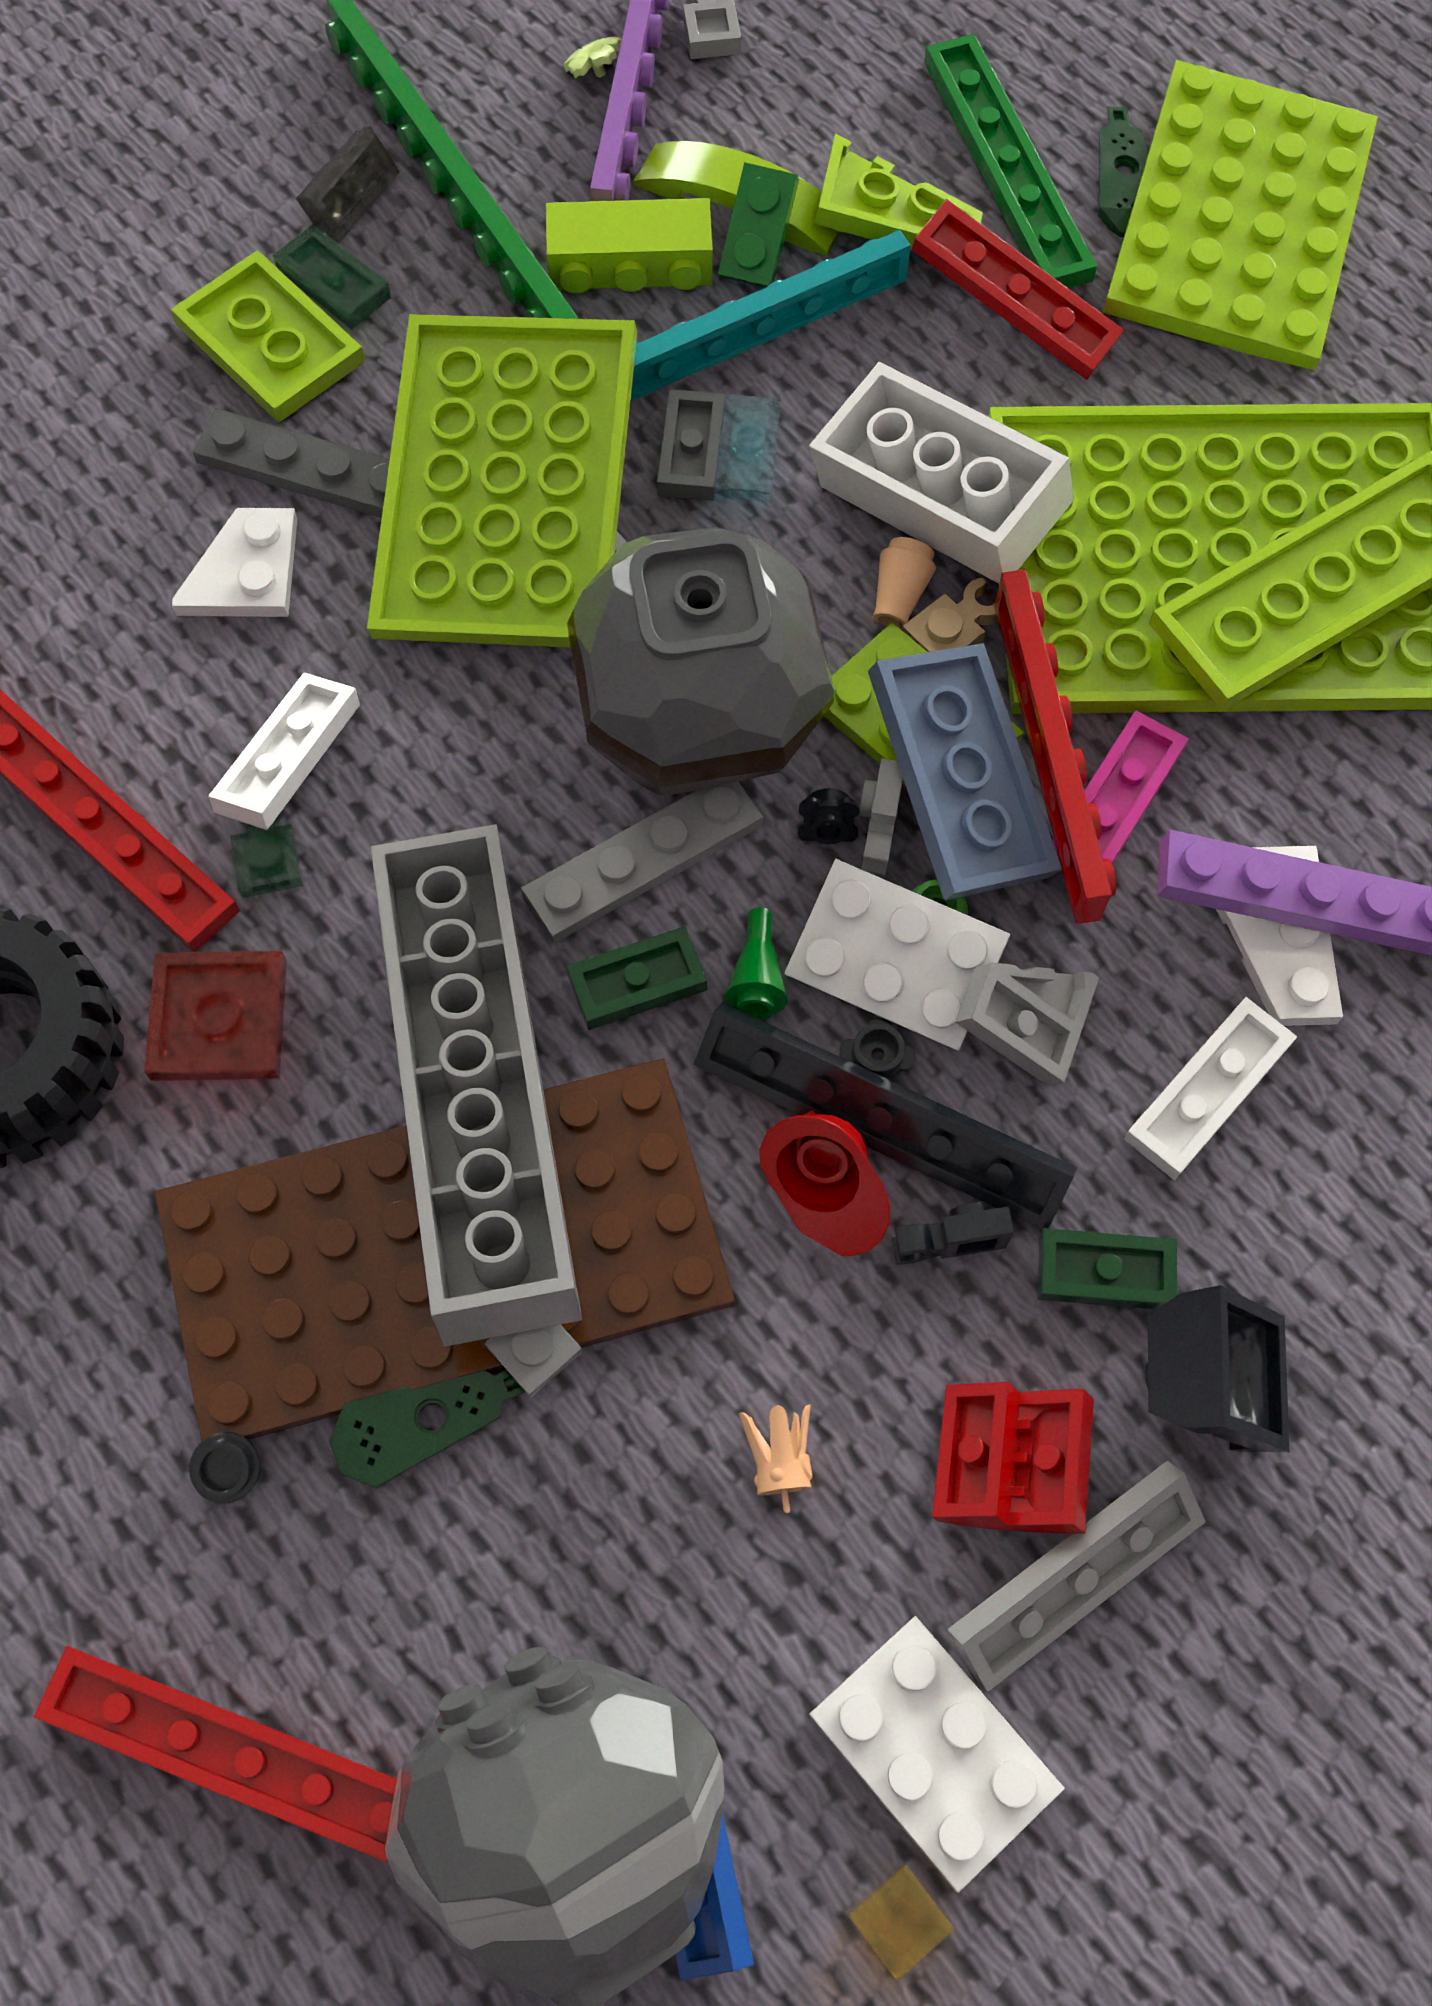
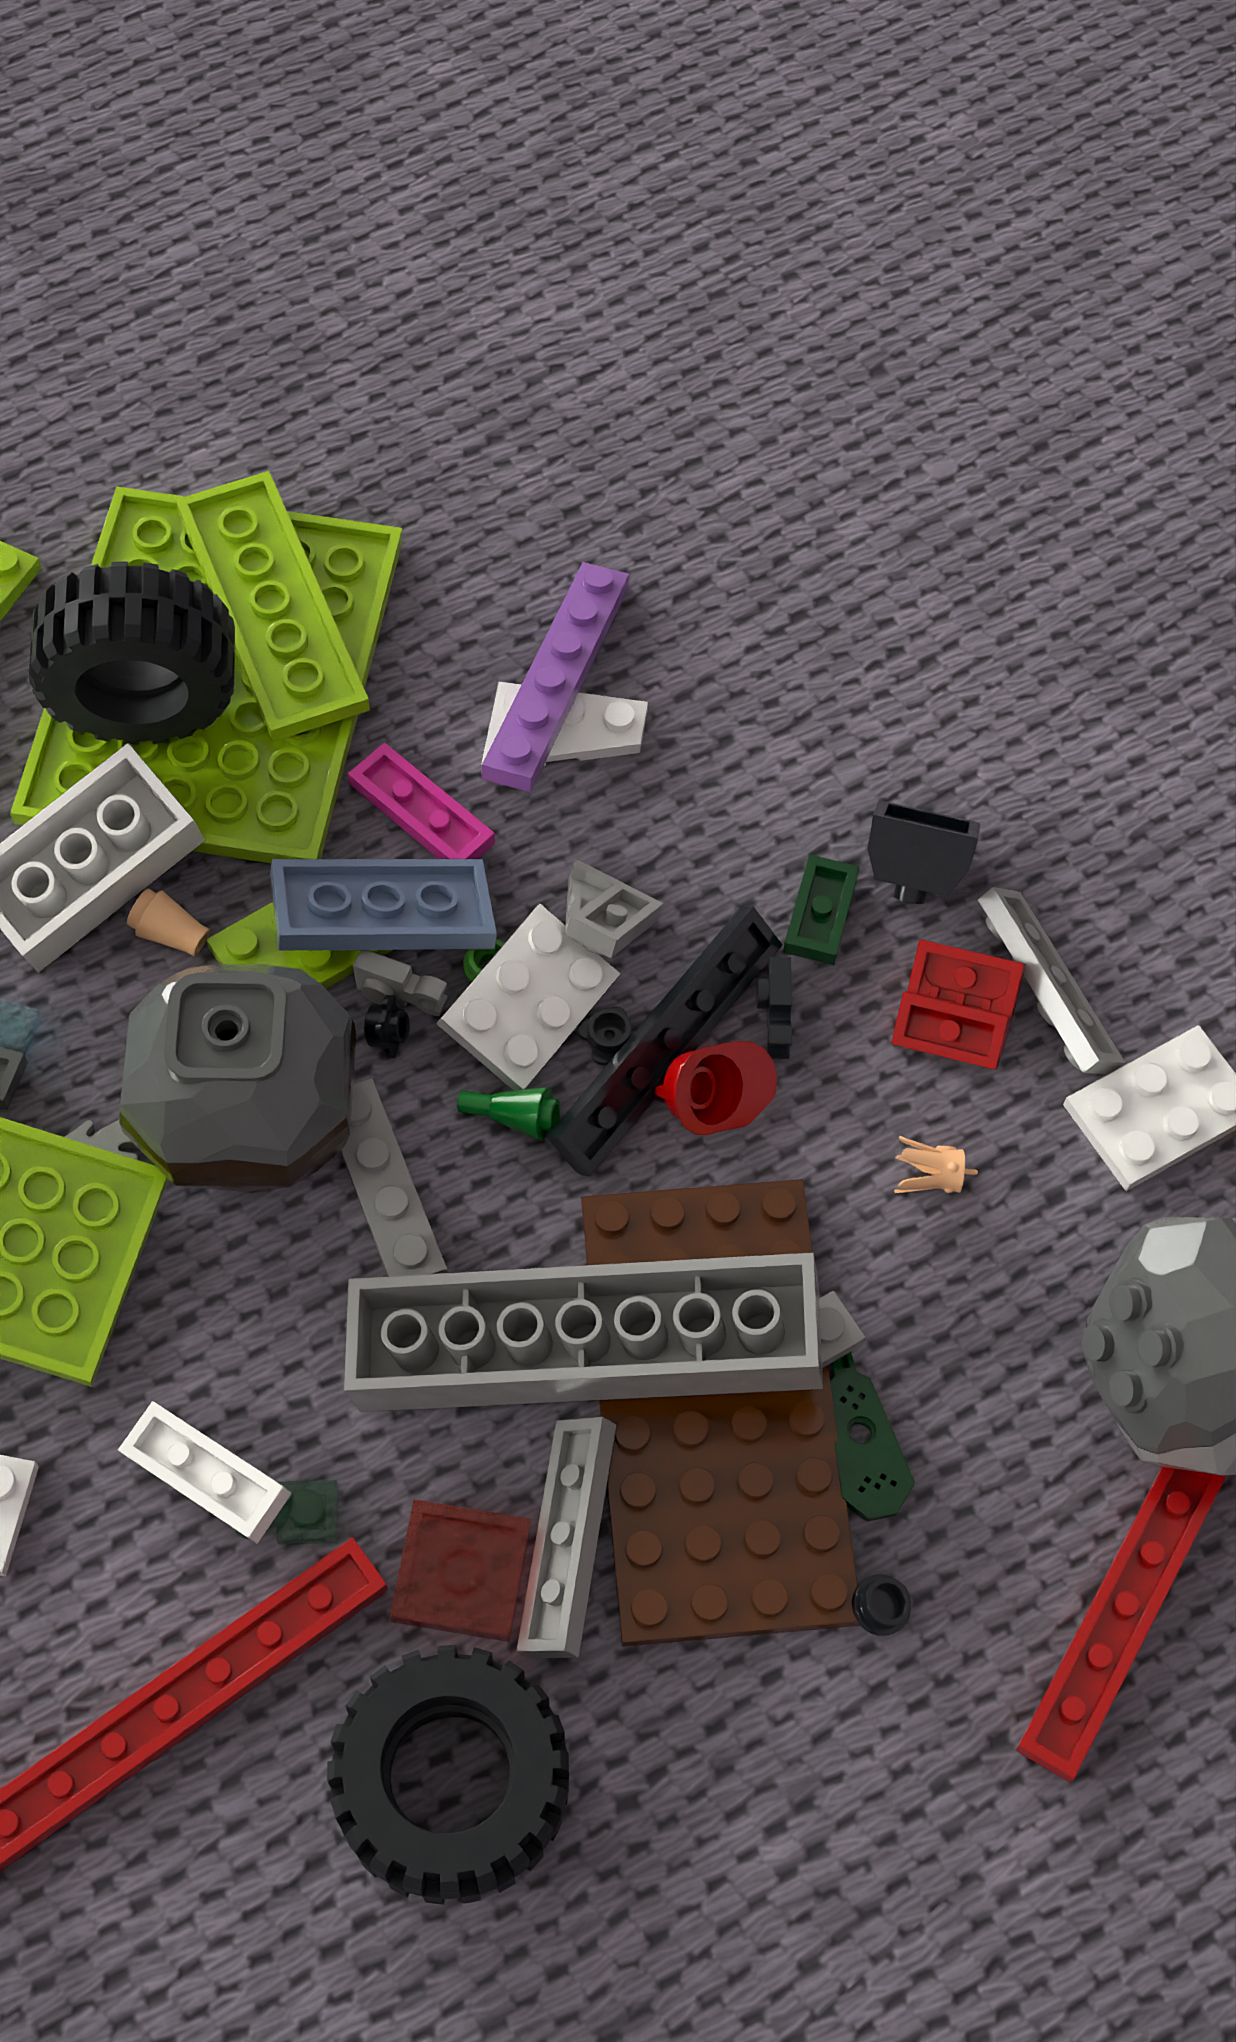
camera: 80 degrees left, 5 degrees down
(261, 1113) = (566, 1539): none -> light grey plate
(637, 978) = (502, 1206): dark green plate -> none
(951, 624) = (219, 898): tan plate -> none
(1059, 767) = (372, 835): red plate -> none
(1181, 429) = (132, 653): none -> black tyre
(1209, 1088) = (688, 805): white plate -> none

